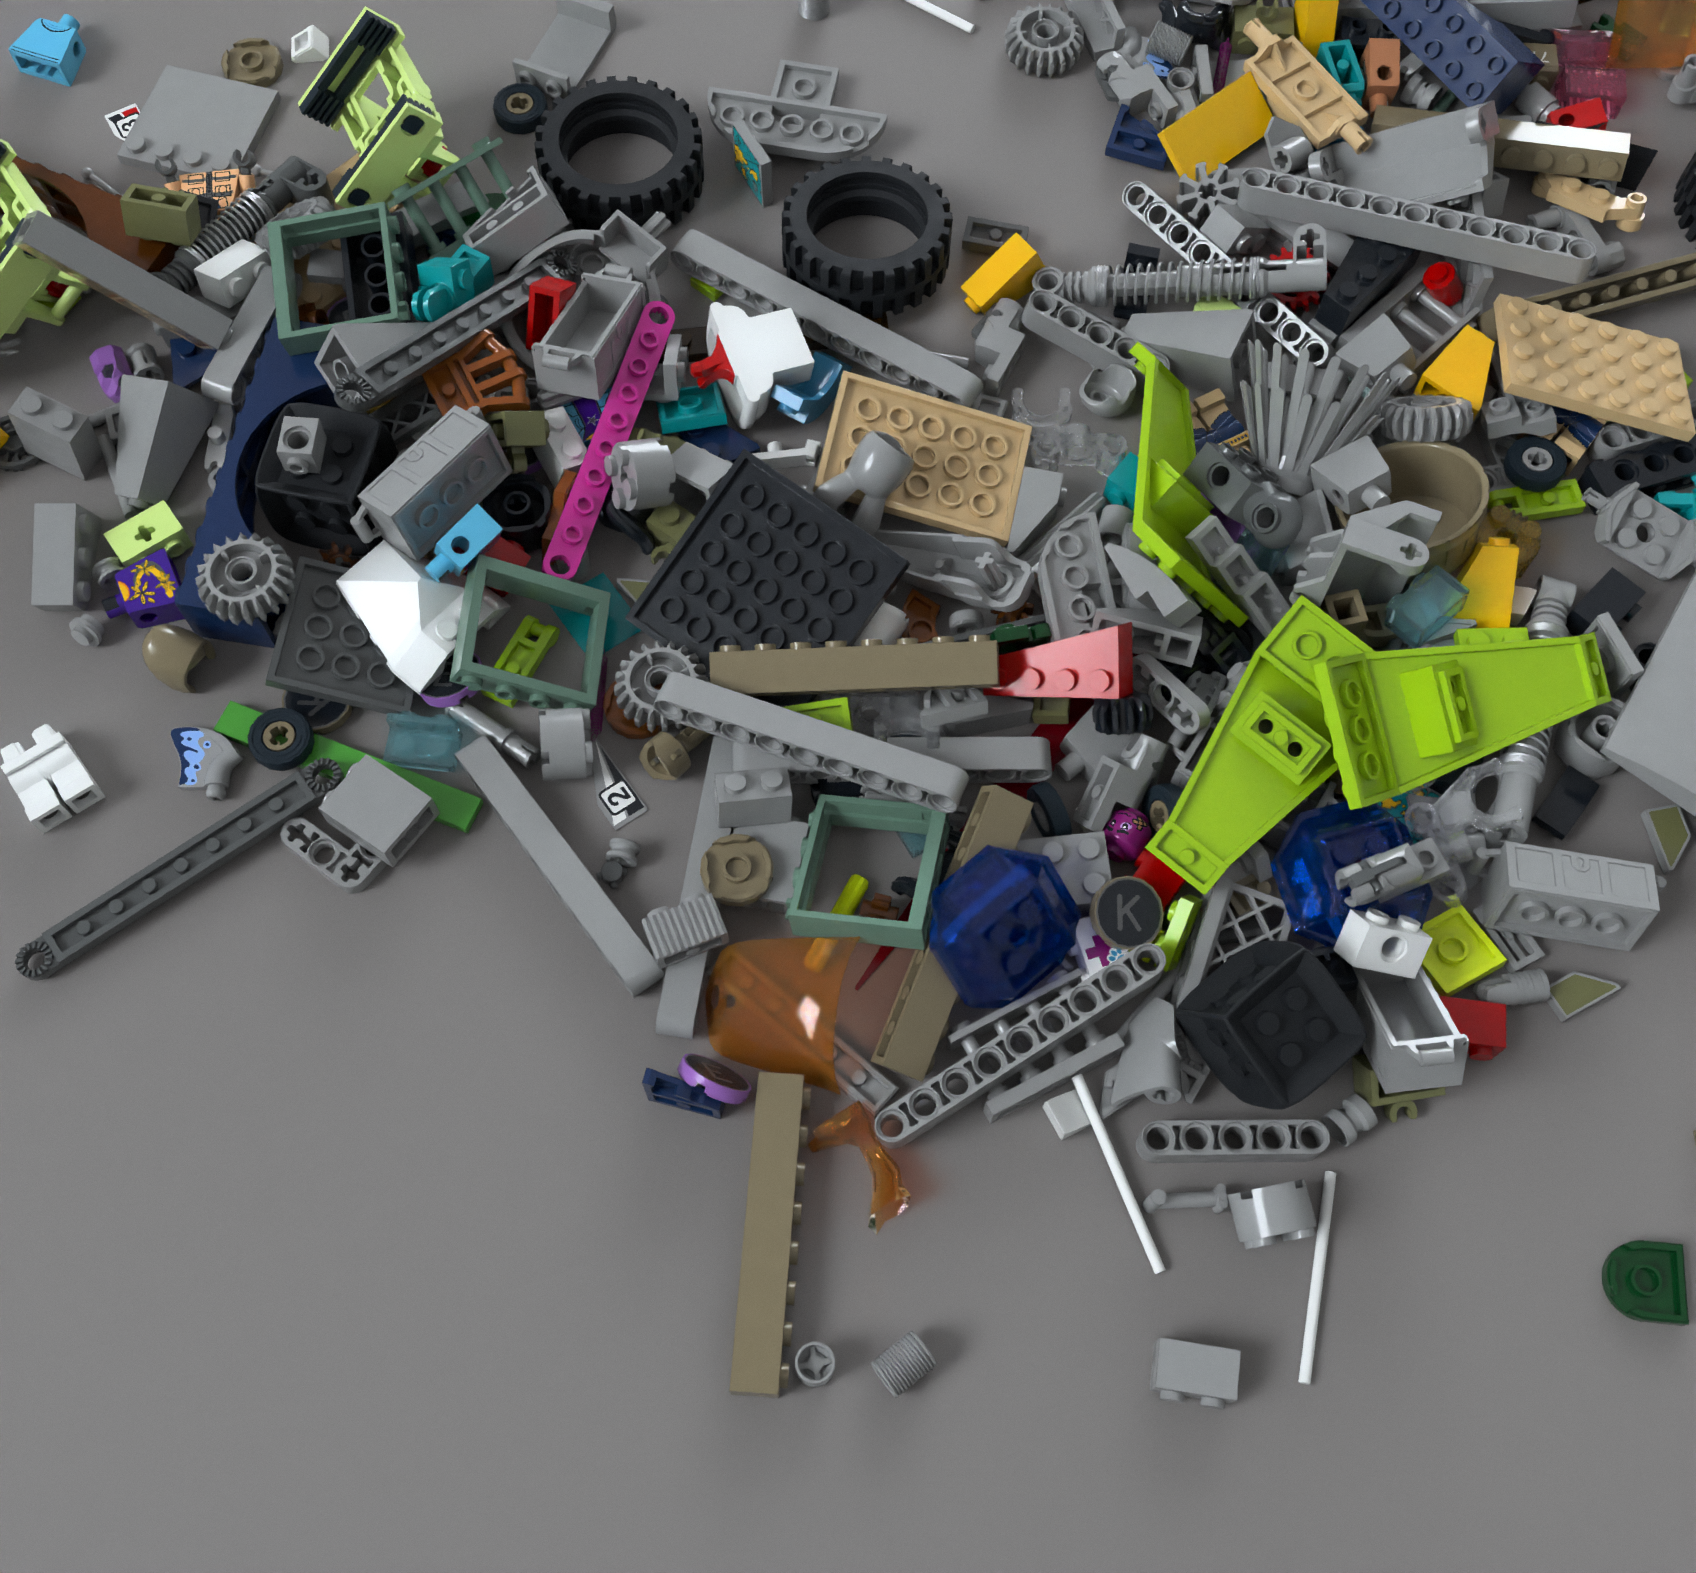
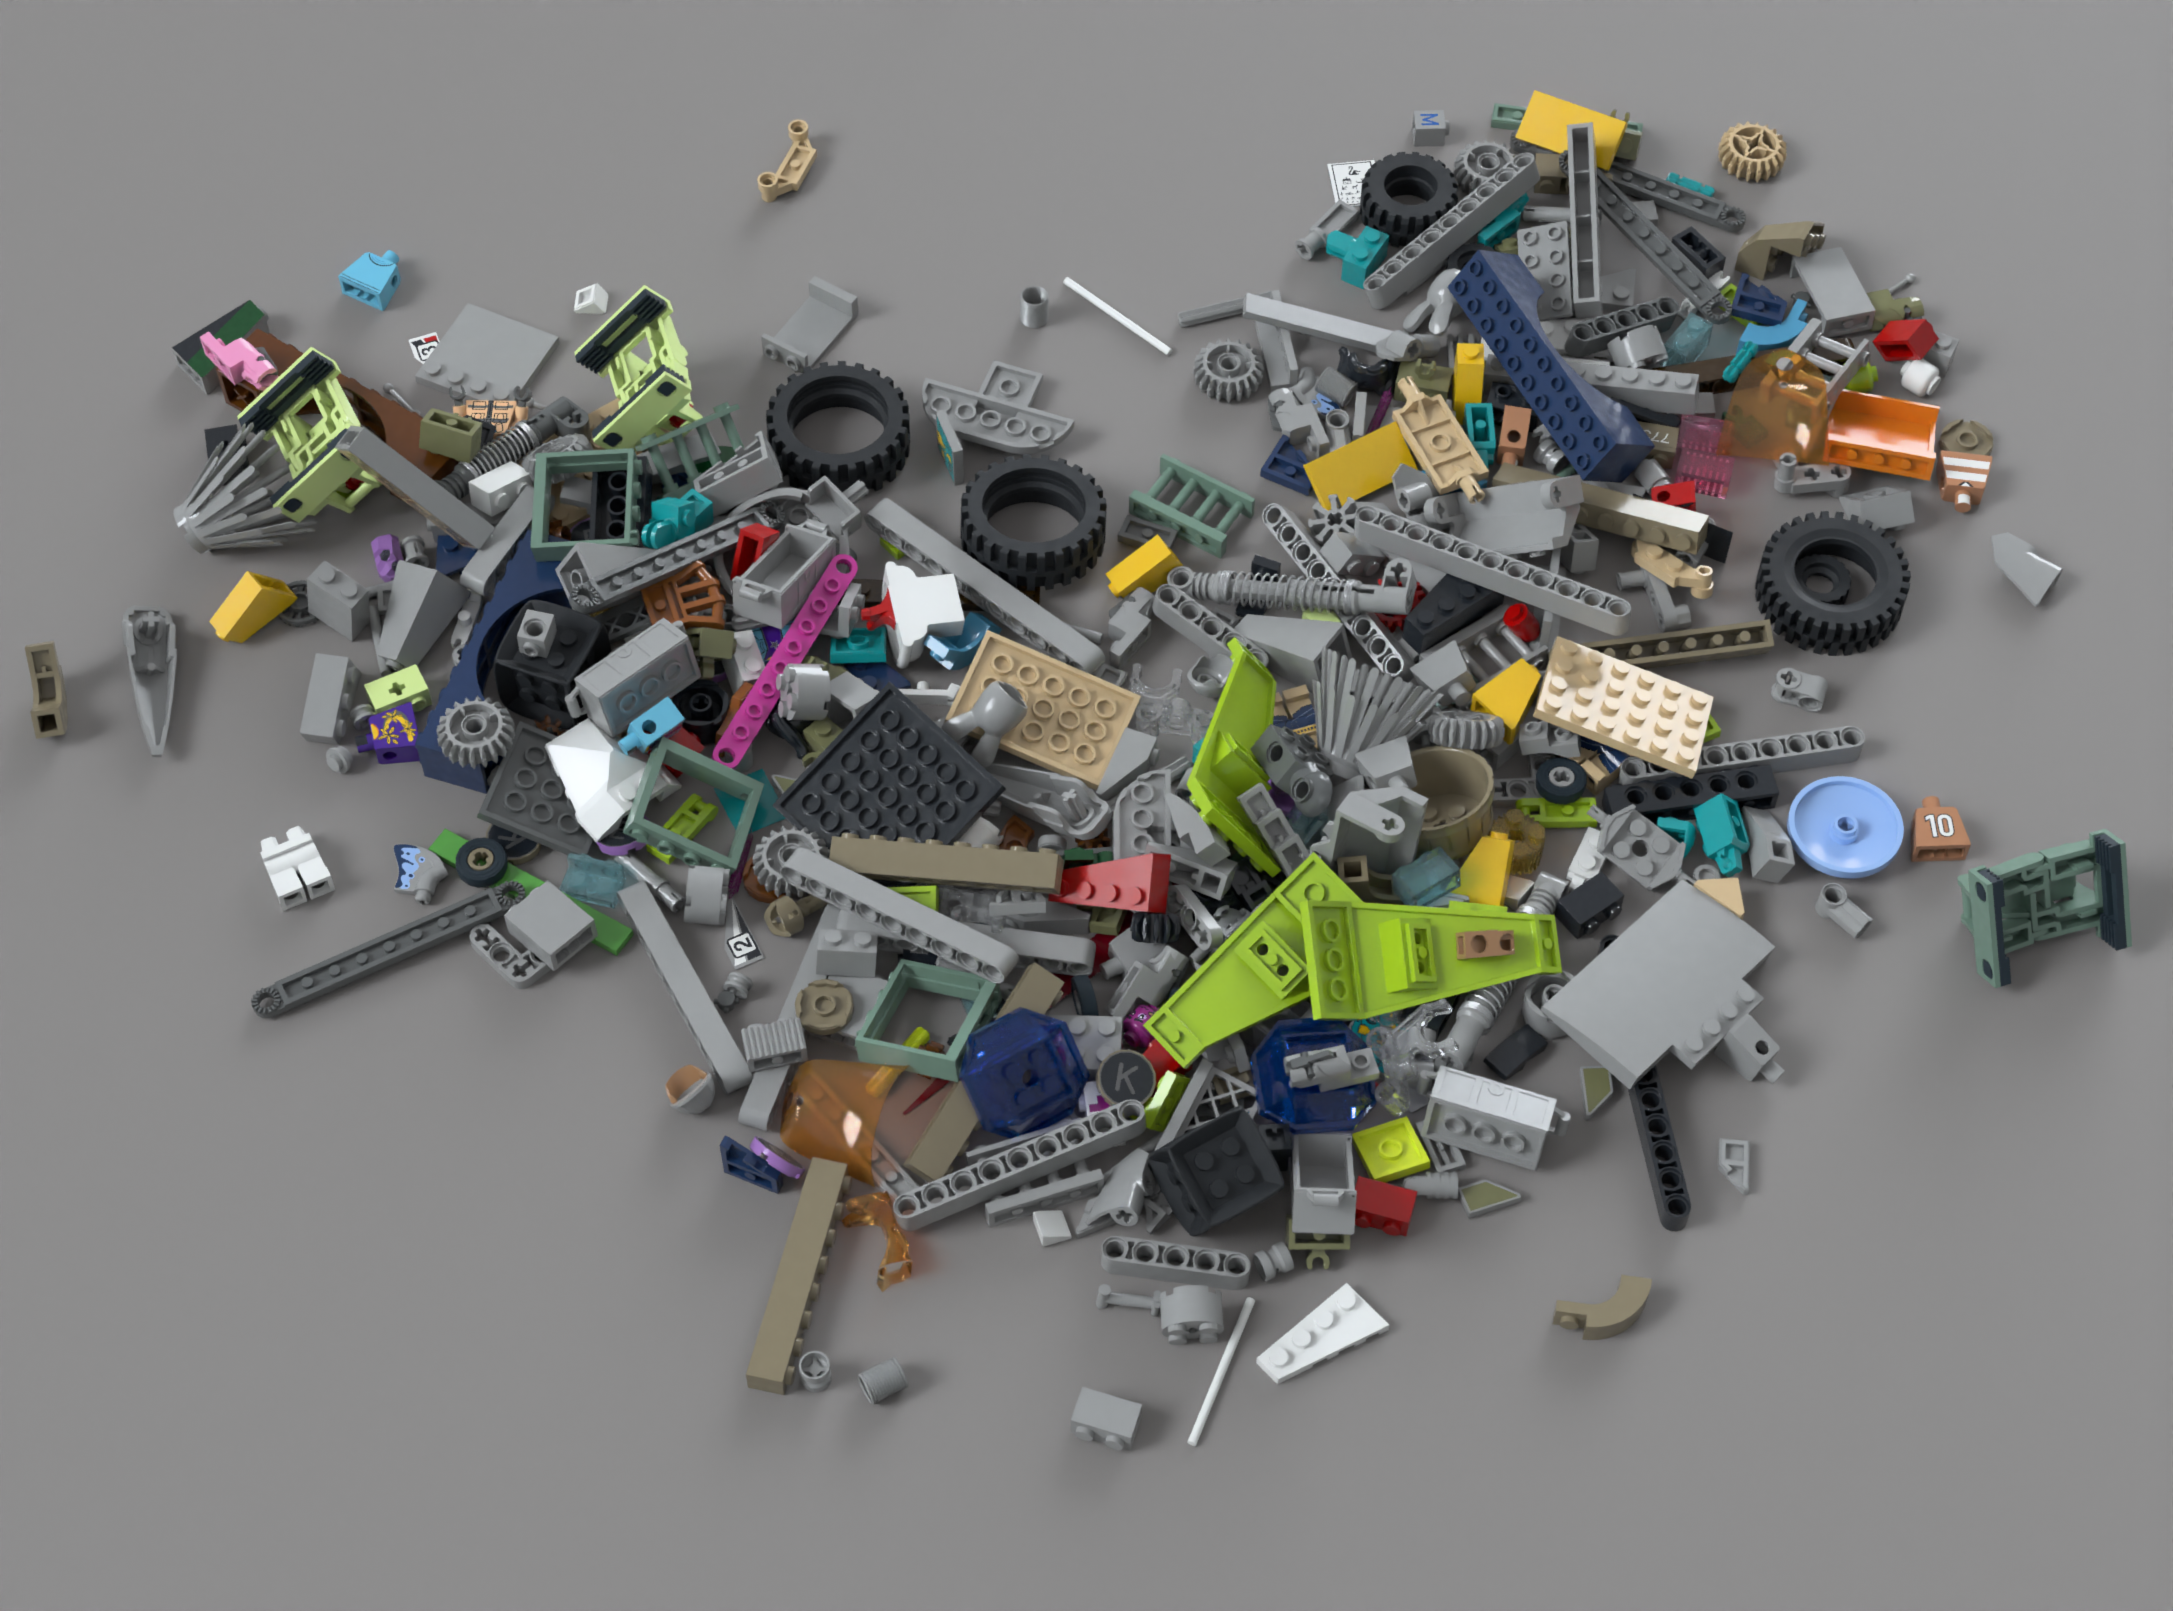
camera: 10 degrees right, 10 degrees down
(172, 652) = (406, 784): dark tan piece -> none
(253, 62) = (540, 309): dark tan tile -> none
(508, 104) = (763, 364): black bush -> none
(588, 1001) = (690, 1090): none -> piece
(1043, 222) = (1191, 528): none -> sand green fence
(1118, 1174) = (1081, 1275): white axle -> none
(1383, 943) = (1329, 1135): white brick -> none
(1431, 1204) = (1330, 1328): none -> white wing
(1529, 683) = (1484, 943): none -> medium nougat leg
(1582, 555) = (1586, 861): none -> white hinge
(1616, 655) = (1575, 939): light grey tile -> none
(1647, 1282) = (1482, 1412): dark green tile -> none

